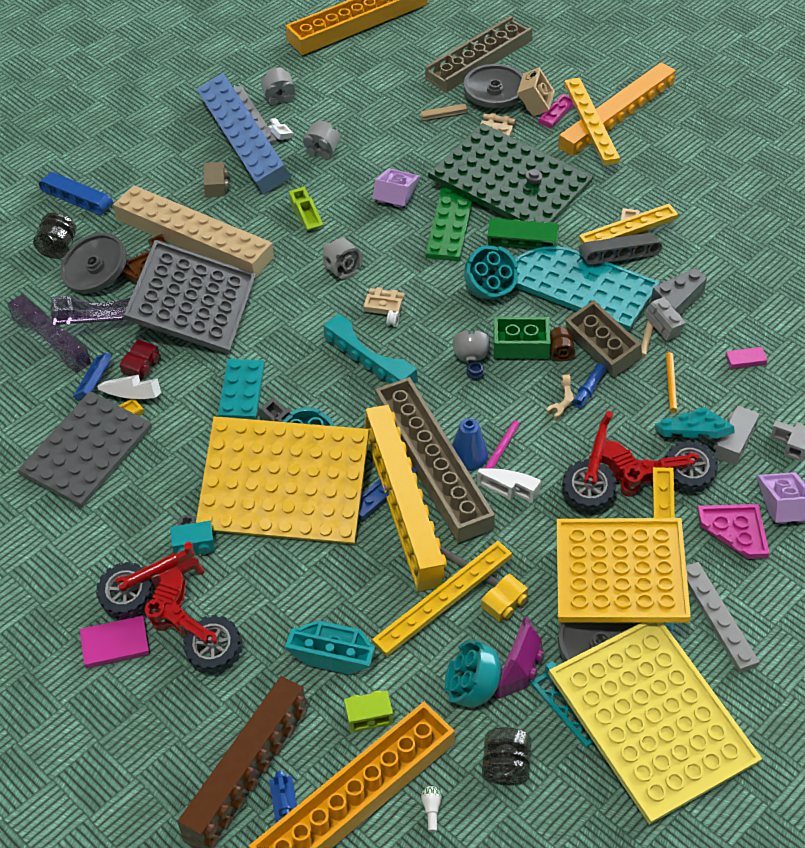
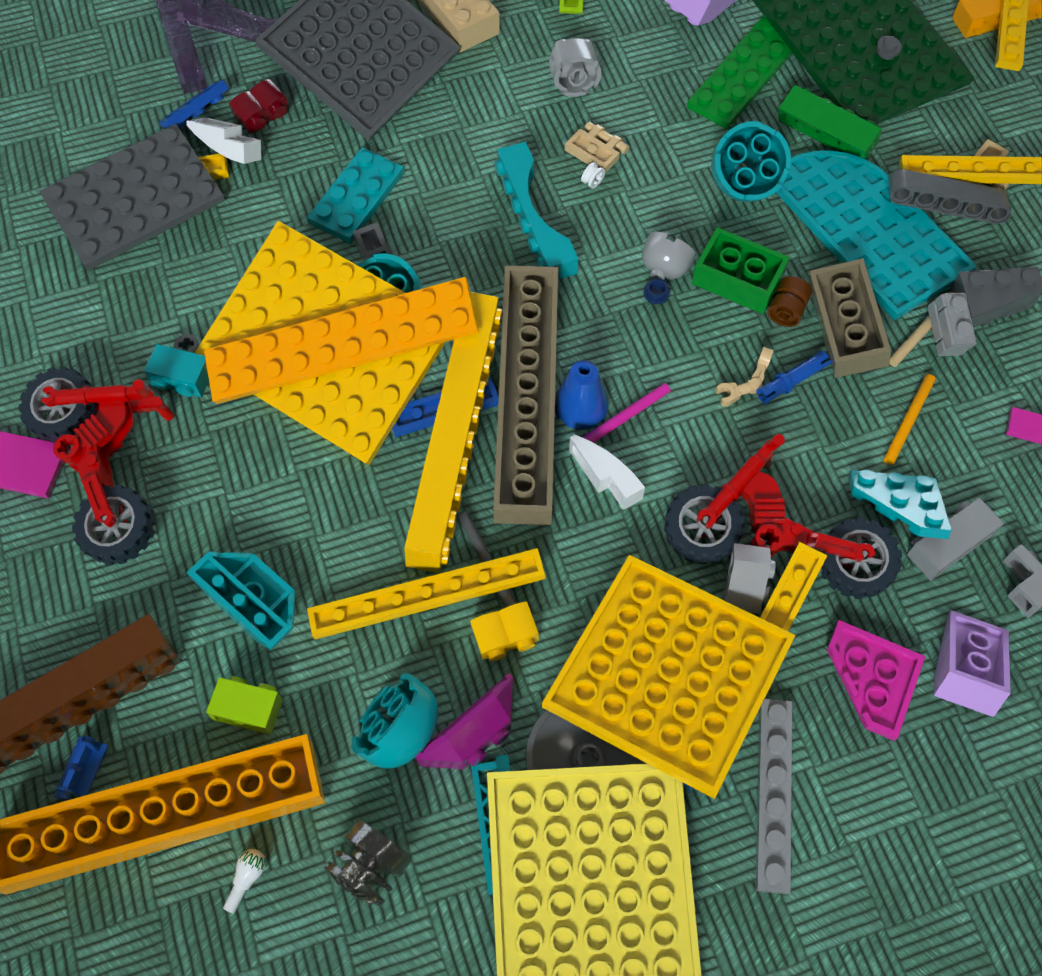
camera: 25 degrees right, 15 degrees up
(298, 473) = (341, 340): none -> light orange plate
(633, 500) = (748, 577): none -> light grey brick

